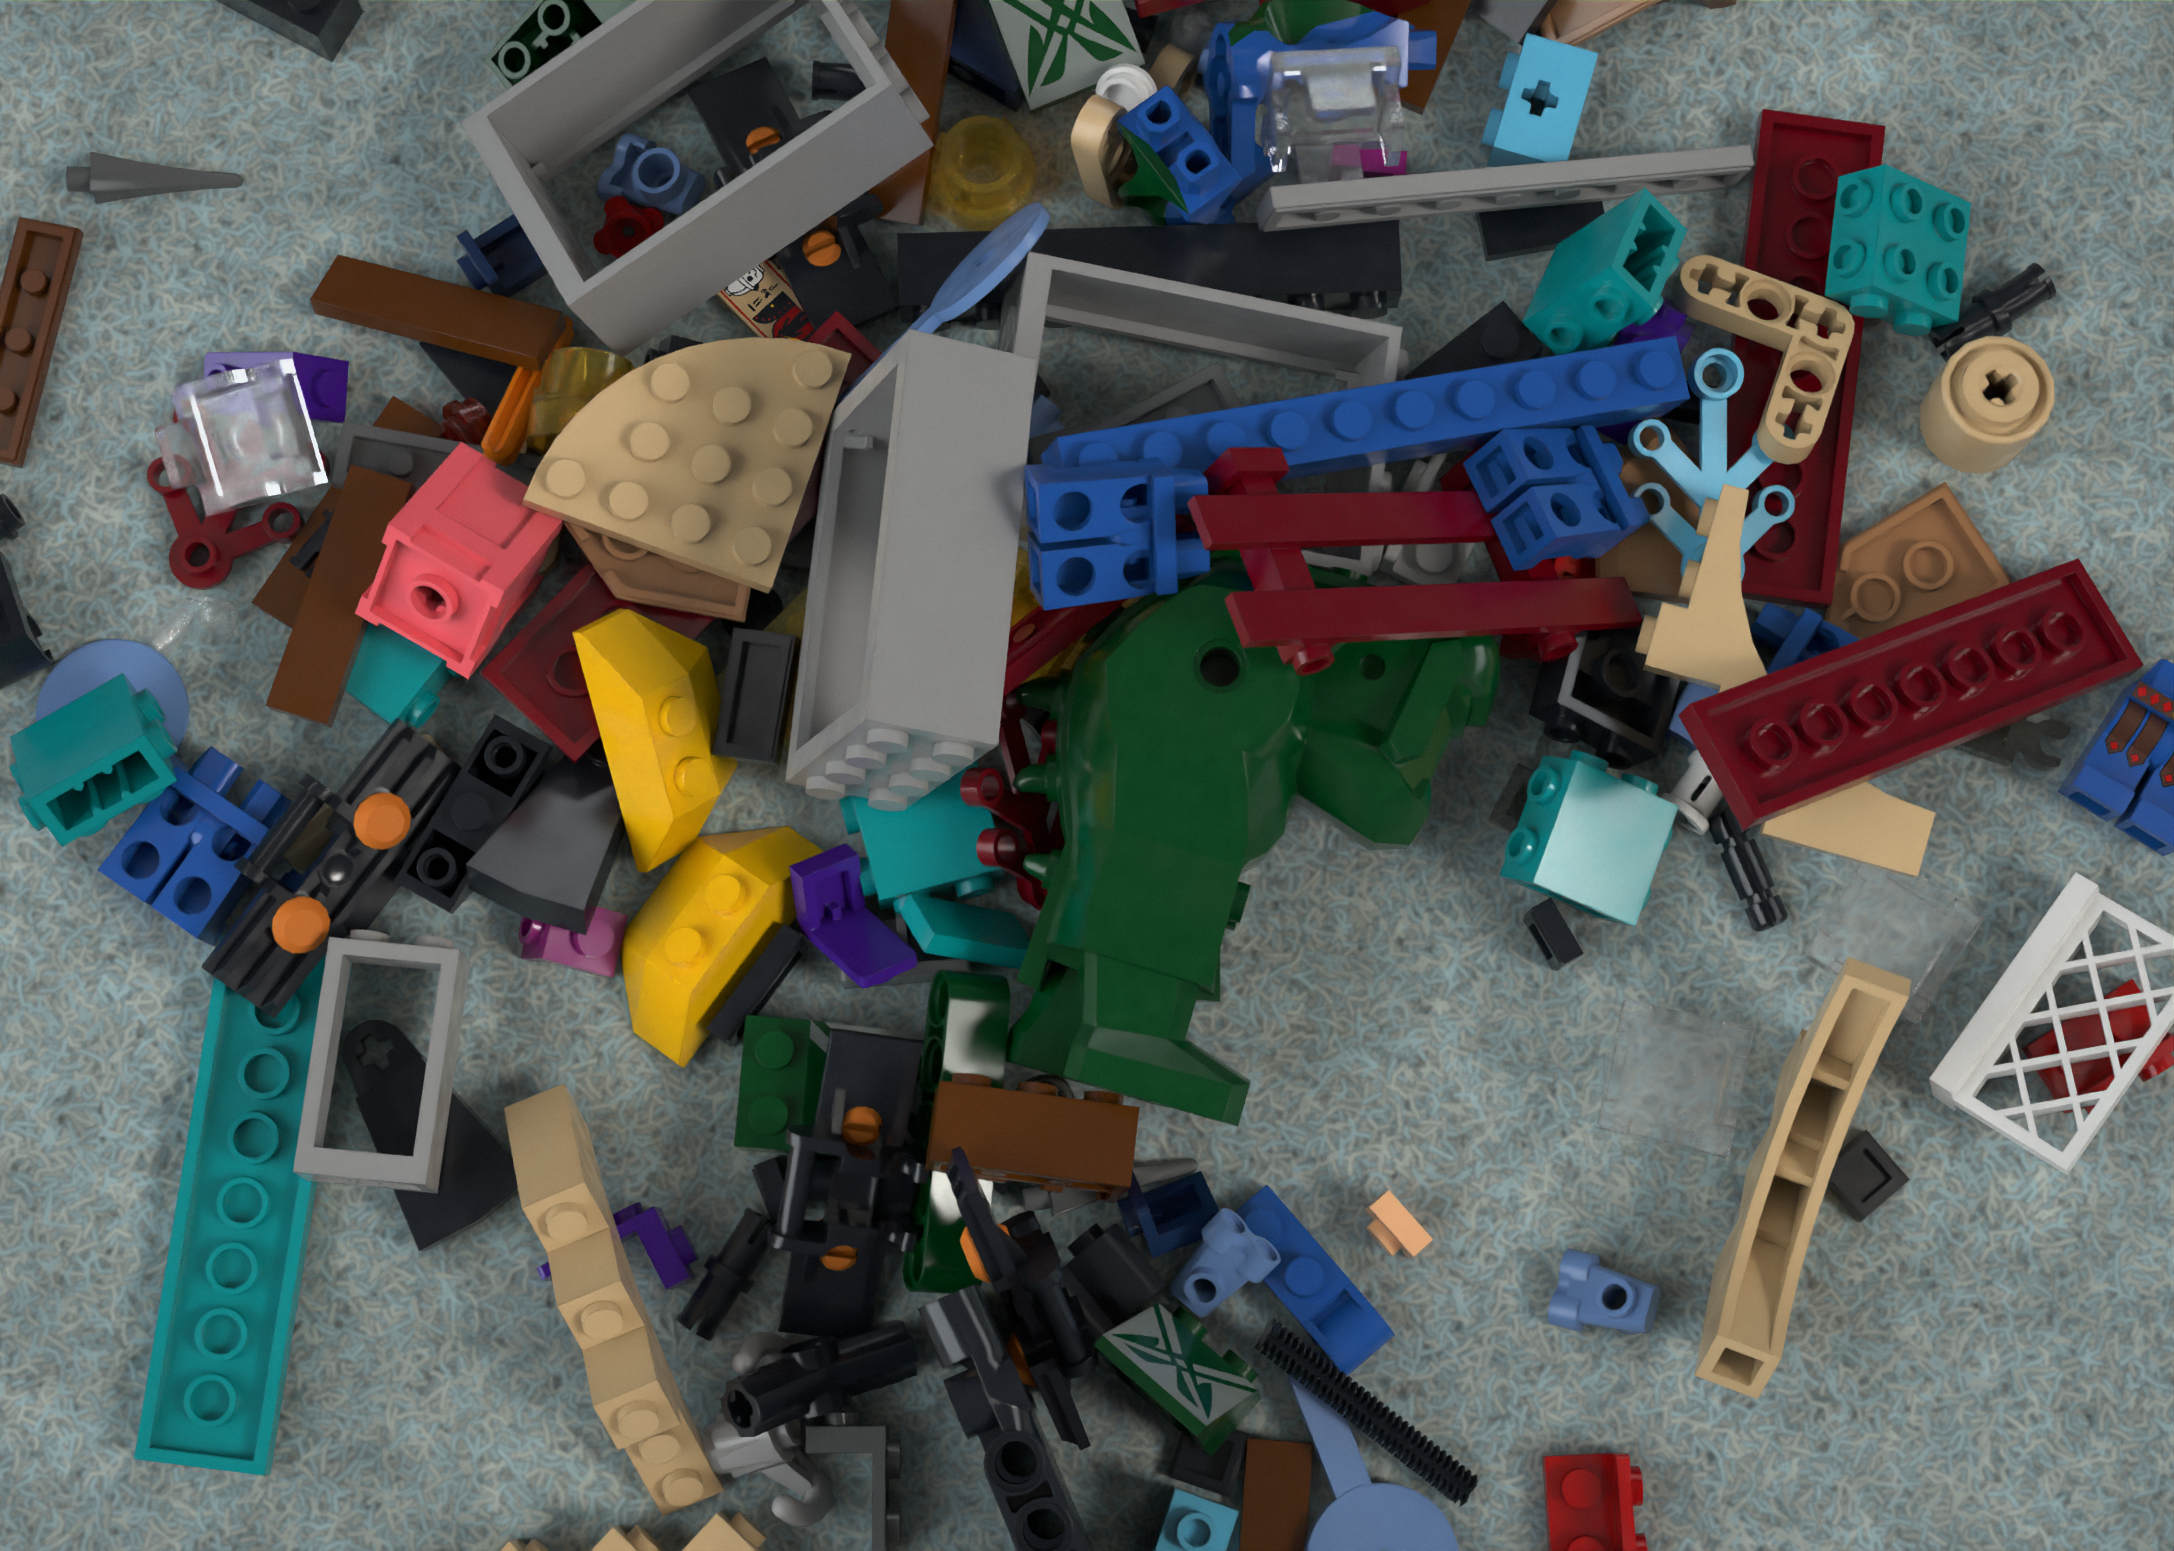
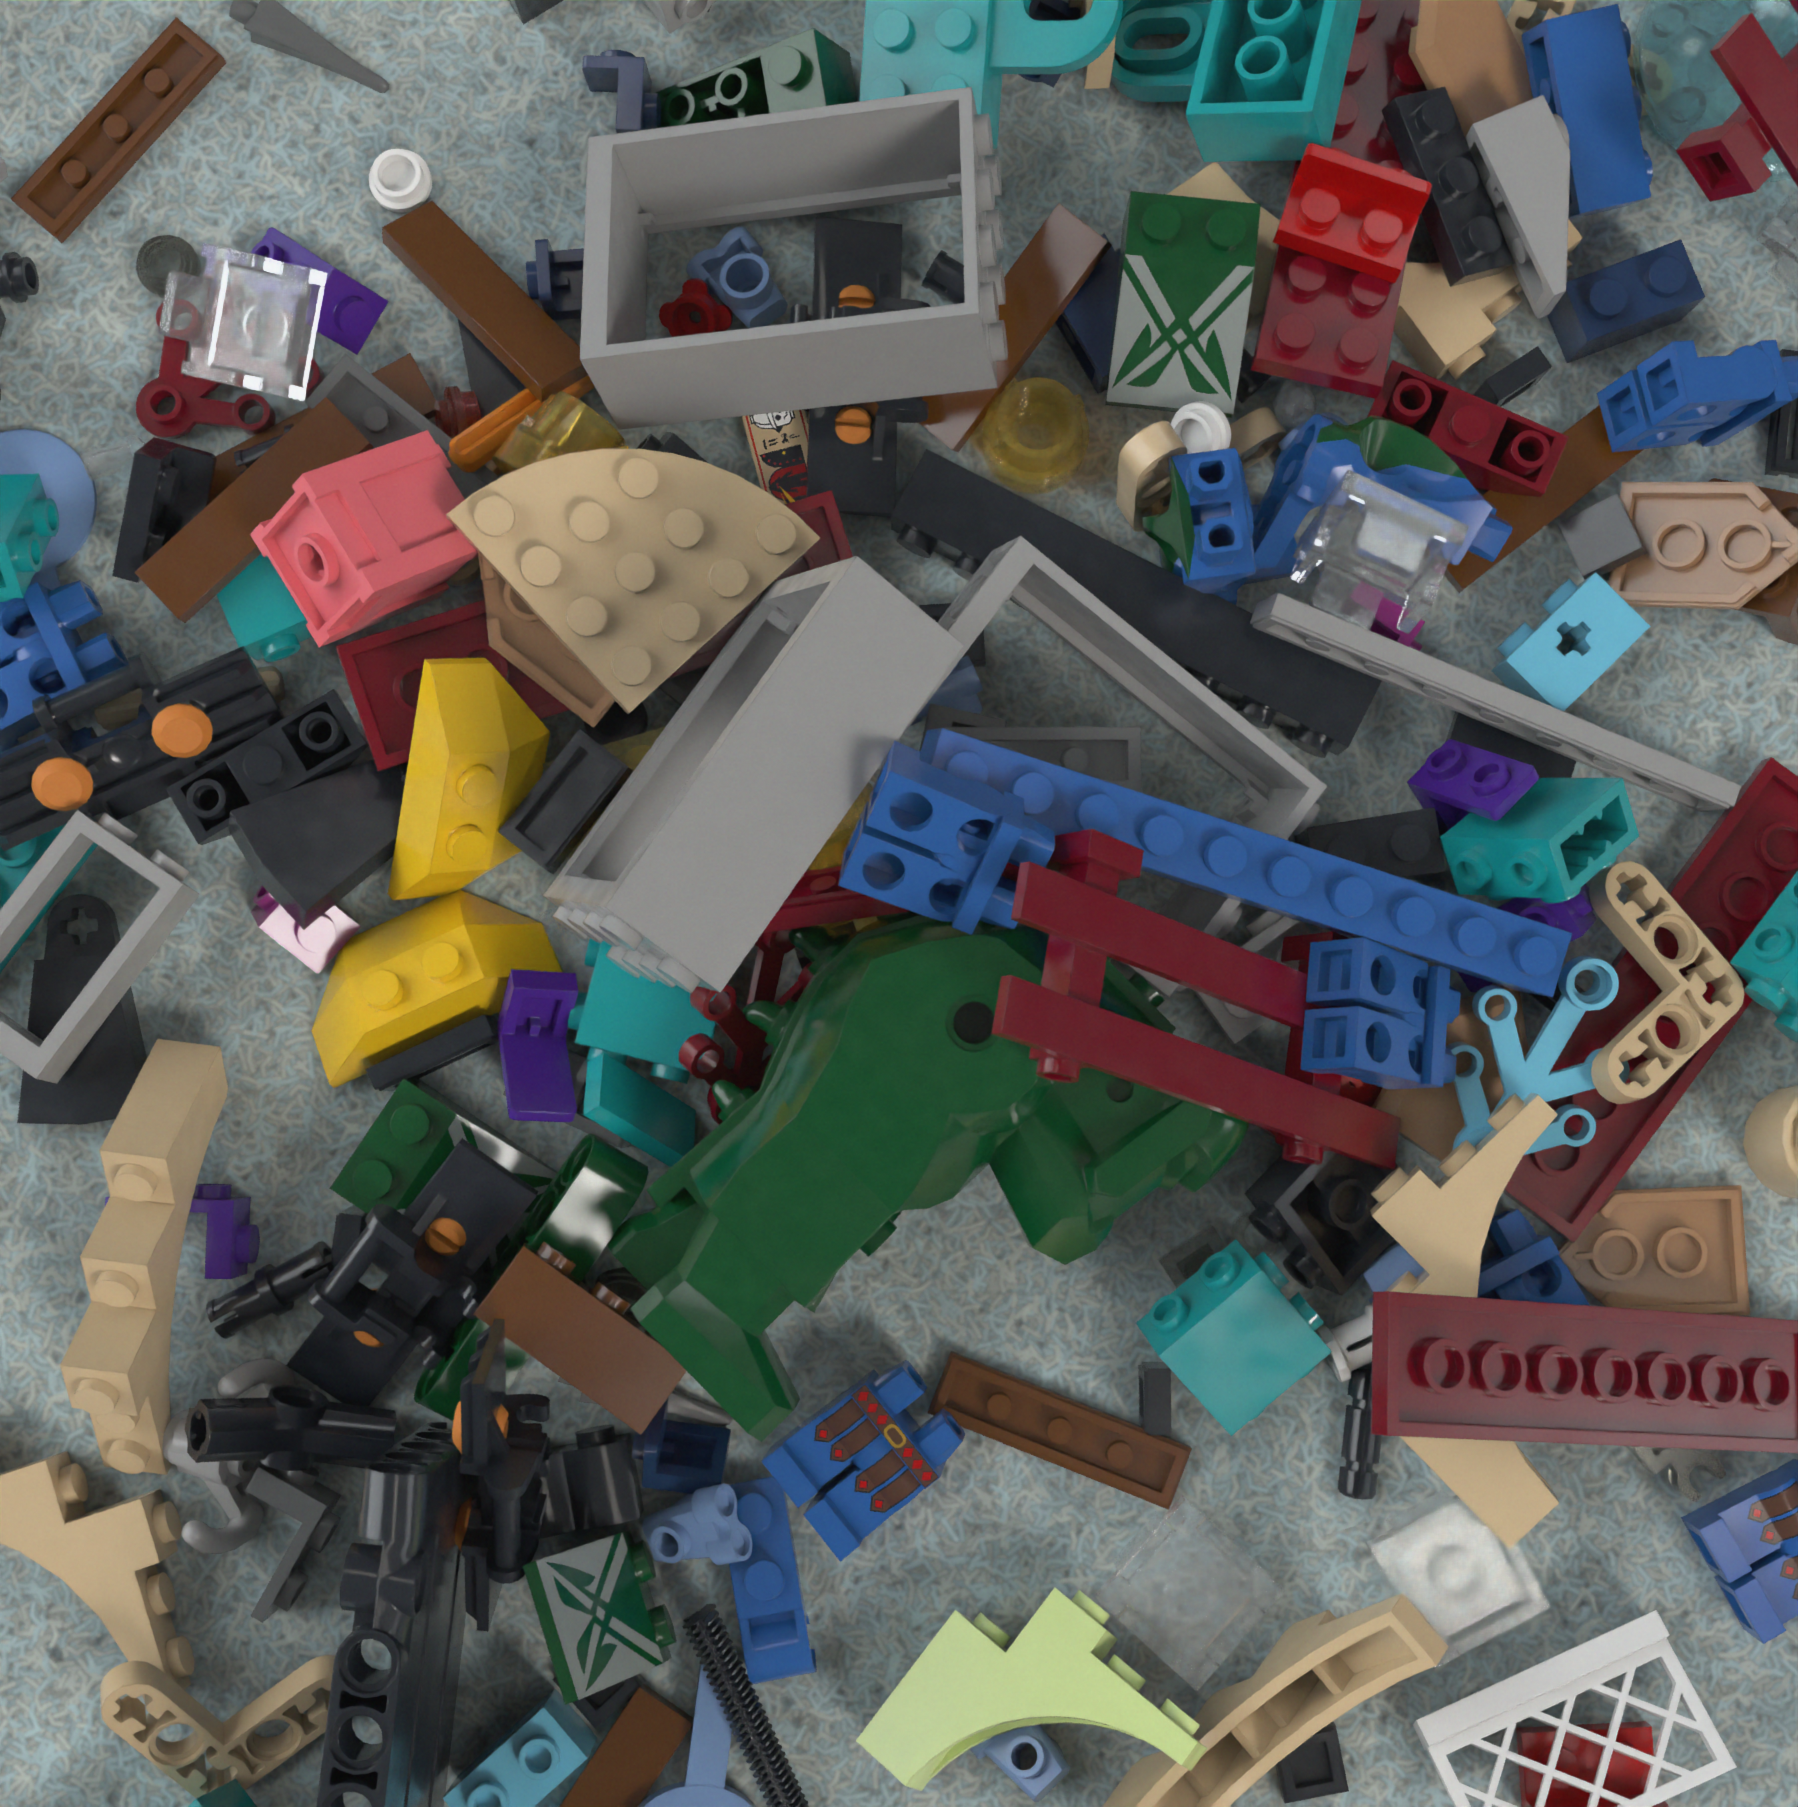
camera: 30 degrees right, 5 degrees up
(130, 436) = (161, 256): none -> clear smoke plate
(253, 637) = (163, 495): none -> black bracket
(299, 252) = (400, 180): none -> white plate
(452, 56) = (630, 79): none -> dark blue bracket
(978, 273) = (963, 530): medium blue piece -> none
(1331, 1101) = (884, 1442): none -> blue hips
(1395, 1227) = (870, 1579): light nougat plate -> none
(1486, 1012) = (1060, 1430): none -> reddish brown tile
(1518, 261) = (1470, 780): none -> dark purple bracket
(1599, 1211) = (1052, 1673): none -> yellowish green arch

